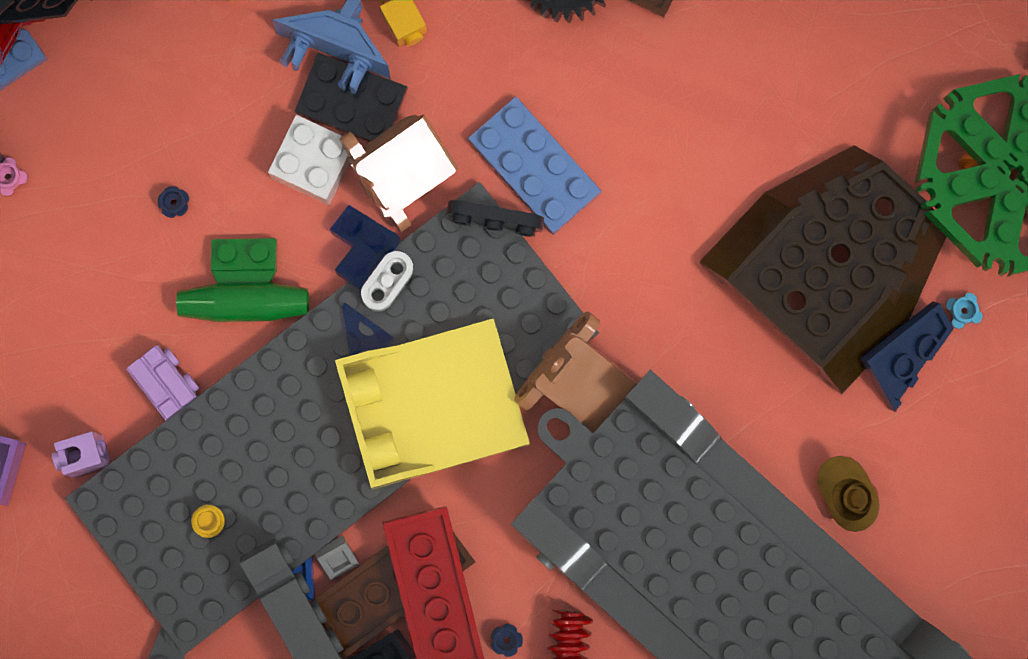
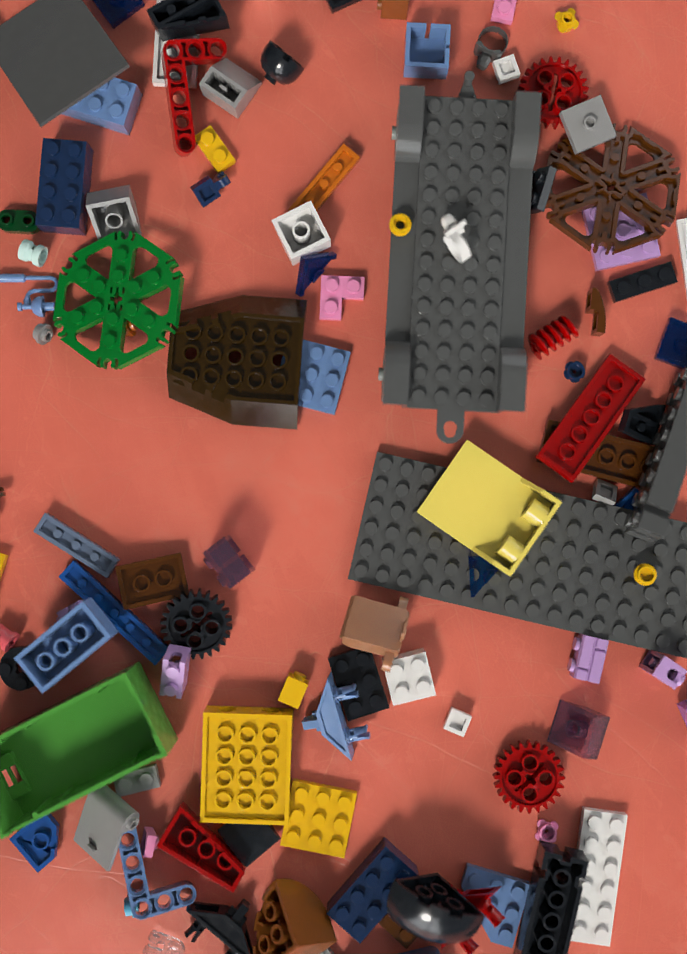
camera: 125 degrees left, 5 degrees up
(58, 209) = (542, 790): none -> red gear
(91, 305) = (578, 729): none -> slope
(167, 196) = (491, 737): dark blue plate -> none
(215, 174) = (457, 721): none -> white plate
(243, 286) = (504, 657): green plate -> none
(368, 242) = (429, 608): clear blue plate -> none
(386, 281) = (442, 584): white plate -> none
(494, 217) = (363, 554): black plate -> none
(534, 165) = (315, 557): medium blue plate -> none
(578, 377) = (412, 441): nougat piece -> none
(609, 56) = (227, 563): none -> clear purple piece
(738, 339) = (321, 376): none -> medium blue plate
(782, 605) = (453, 238): none -> white piece
(826, 431) = (334, 290): none -> bright pink plate
(848, 493) = (357, 253): pearl gold piece -> none
(852, 559) = (400, 217): none -> yellow plate
(874, 428) = (311, 269): none -> clear blue tile
(902, 354) = (259, 284): dark blue wing -> none
(925, 447) = (301, 232): none -> white slope
(963, 524) = (328, 178): none -> orange plate
(969, 302) = (205, 271): medium azure plate -> none

